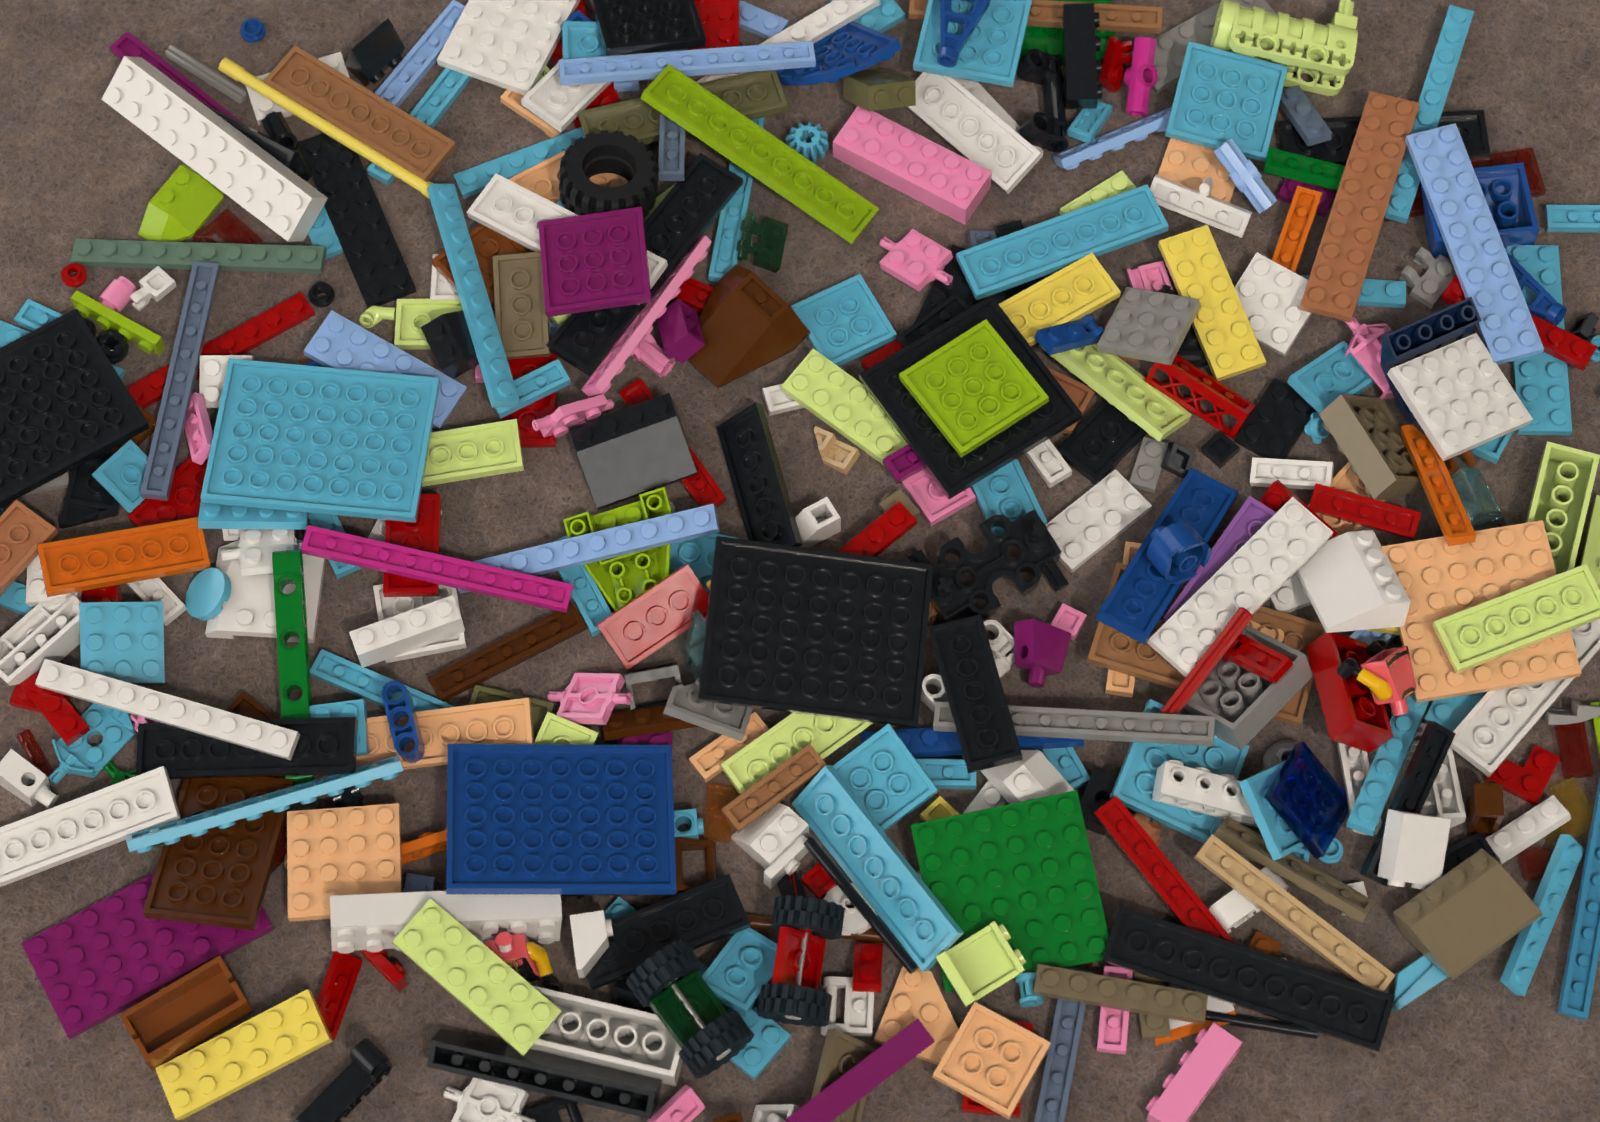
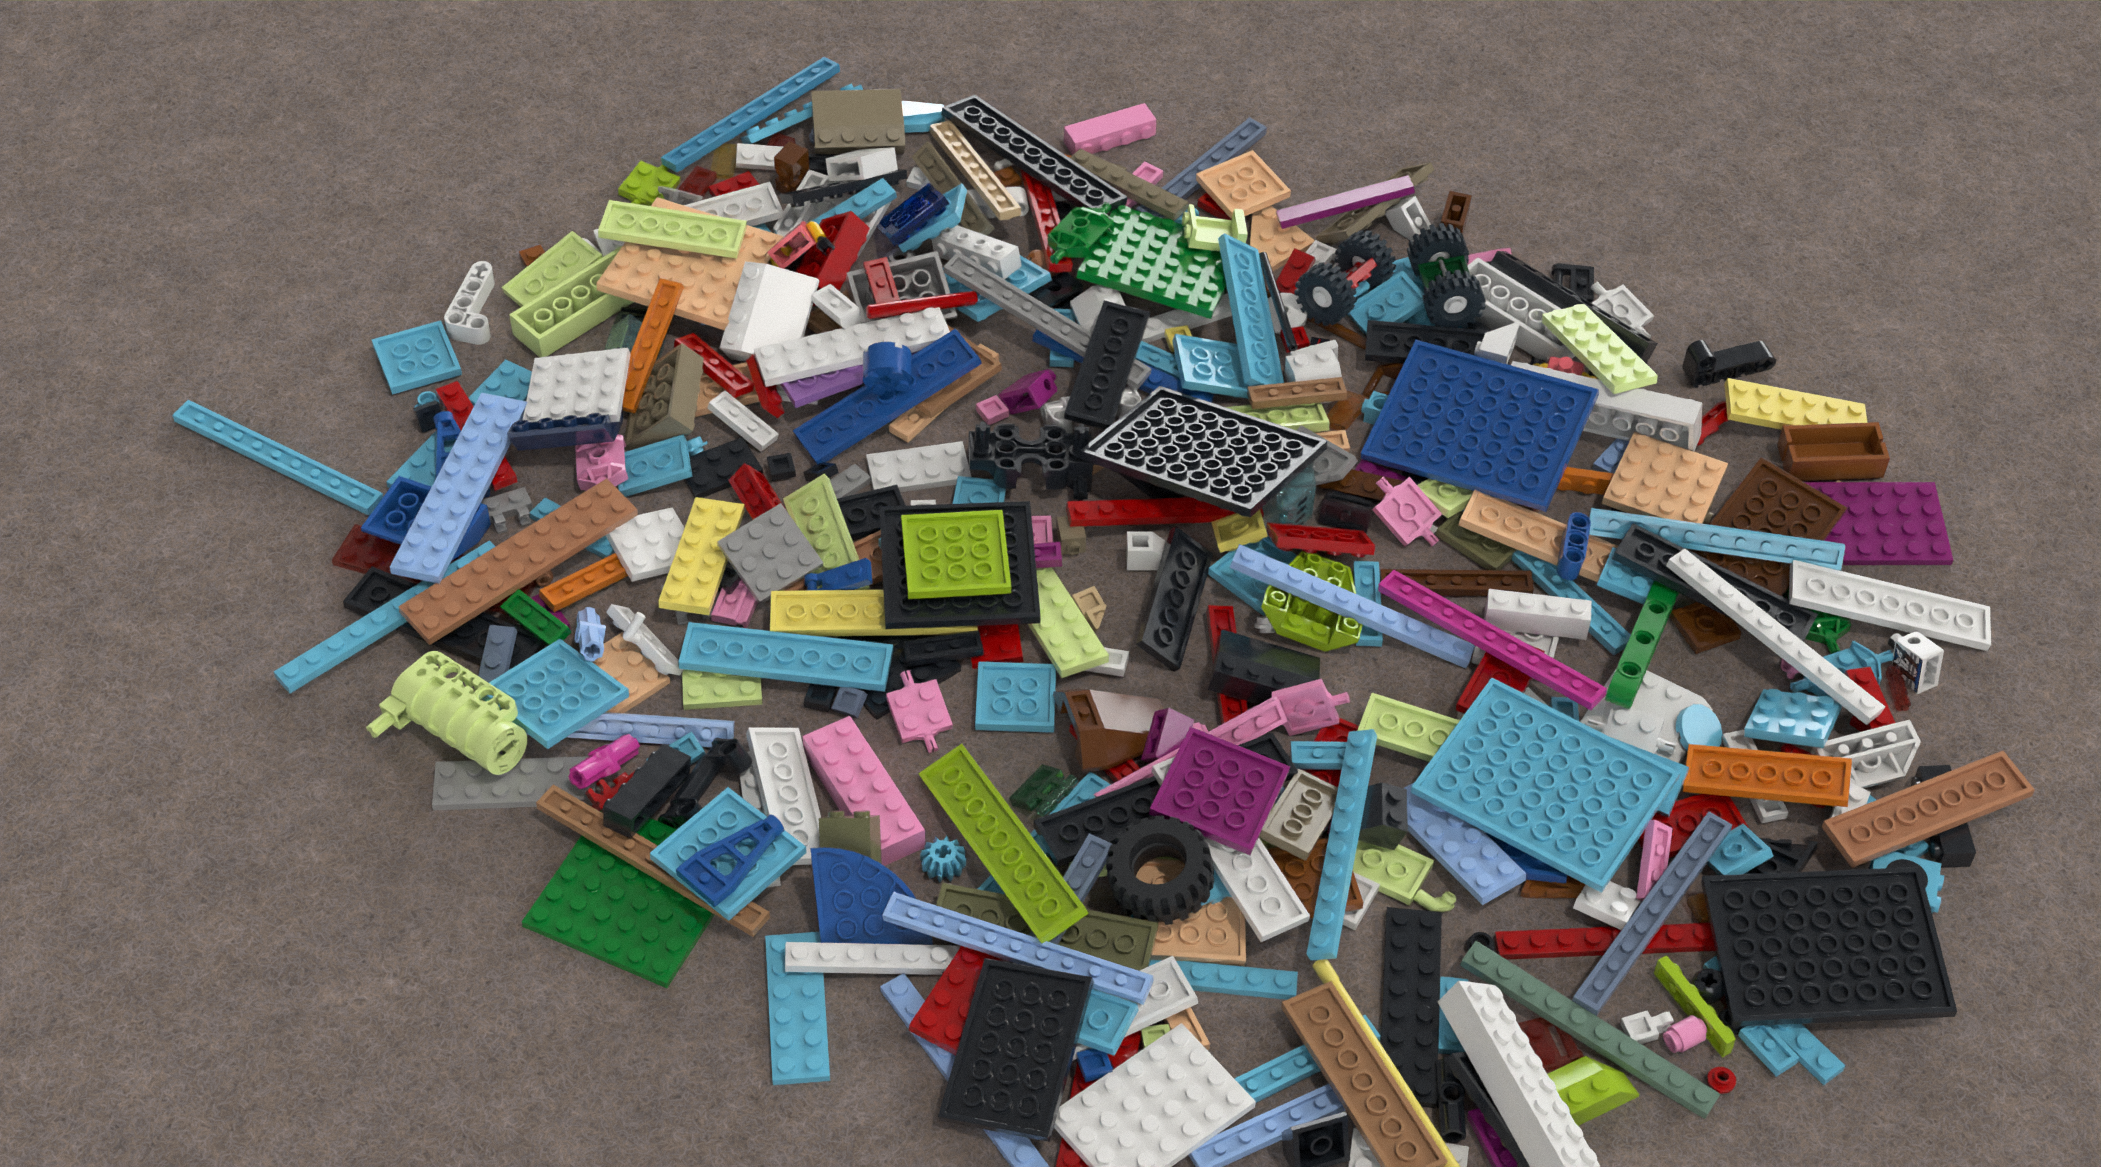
camera: 155 degrees left, 15 degrees down
(1105, 878) = (1079, 232): none -> green plate
(1286, 612) = (837, 306): none -> white tile

